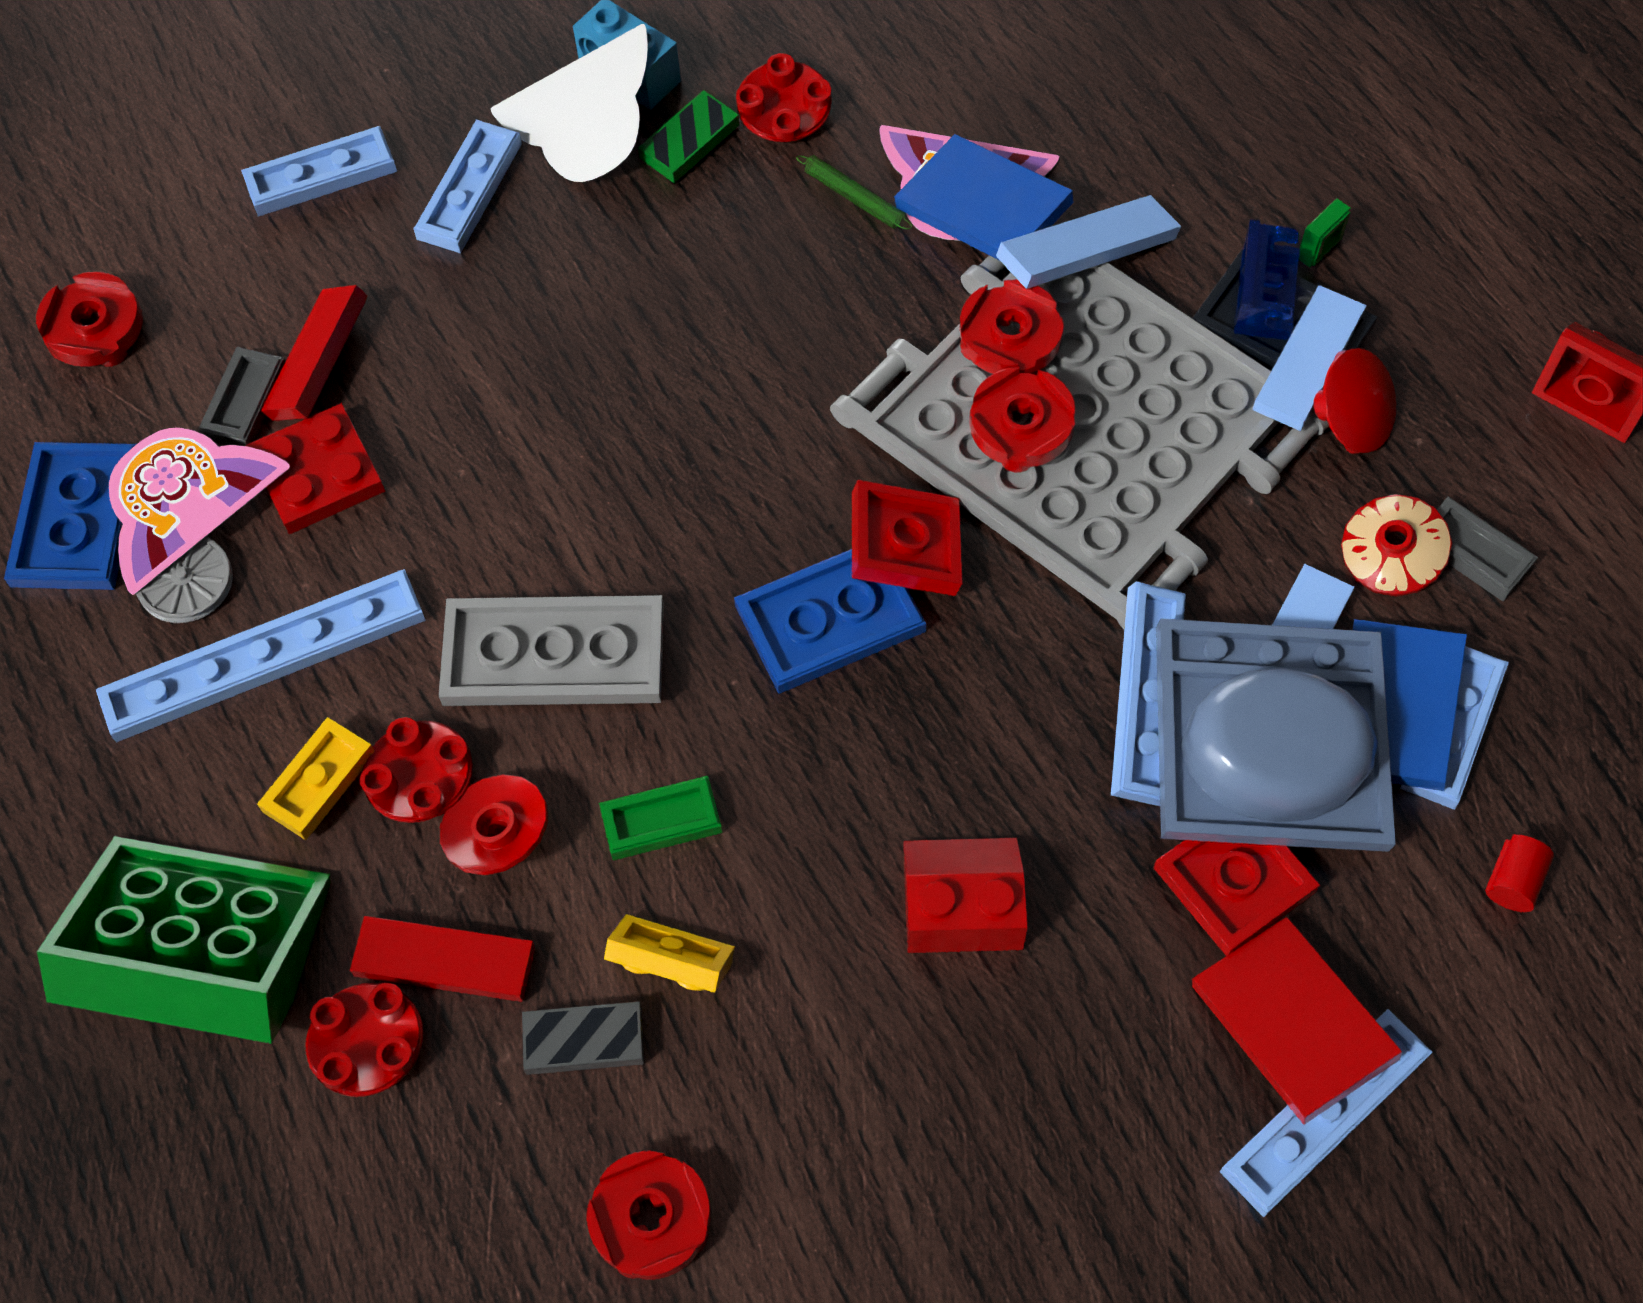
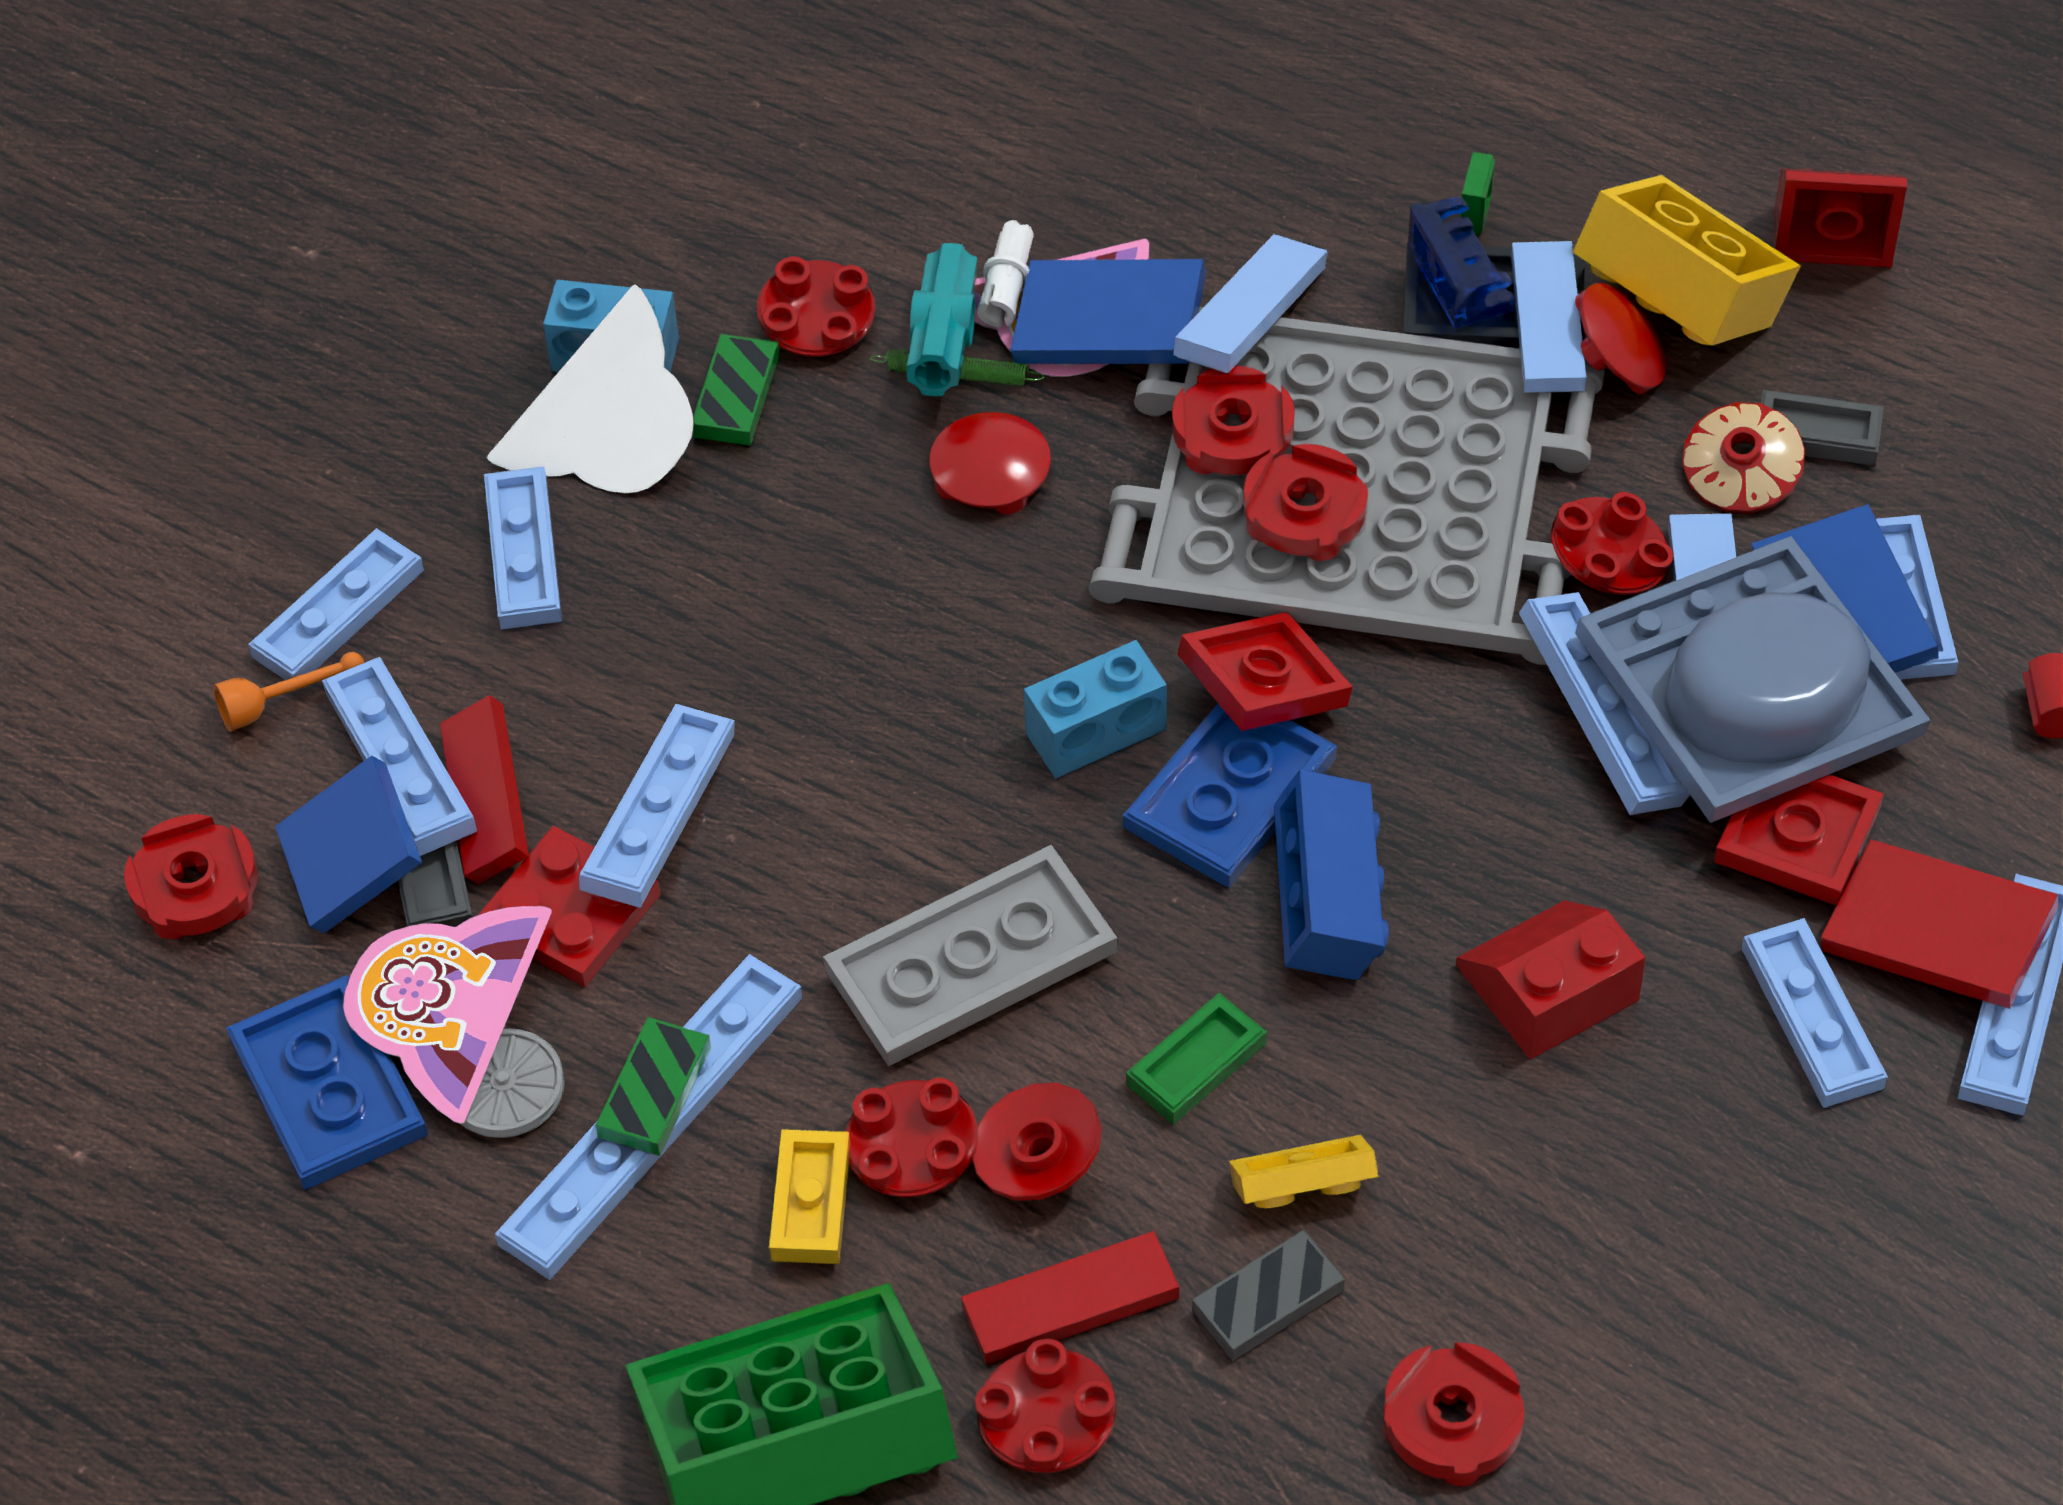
camera: 30 degrees left, 10 degrees down
(192, 349) = (348, 844): none -> blue tile
(208, 209) = (243, 701): none -> orange hinge
(265, 636) = (653, 1086): none -> green tile
(277, 301) = (387, 729): none -> light blue tile
(415, 424) = (657, 806): none -> light blue tile
(764, 505) = (1095, 709): none -> dark azure brick
(828, 275) = (990, 461): none -> red dish
(845, 727) = (1329, 875): none -> blue brick
(857, 150) = (942, 319): none -> teal piece
(931, 136) = (1005, 275): none -> white axle
(1149, 1037) = (1814, 1013): none -> light blue tile
(1244, 565) = (1611, 544): none -> red dish
(1447, 362) = (1685, 260): none -> yellow brick

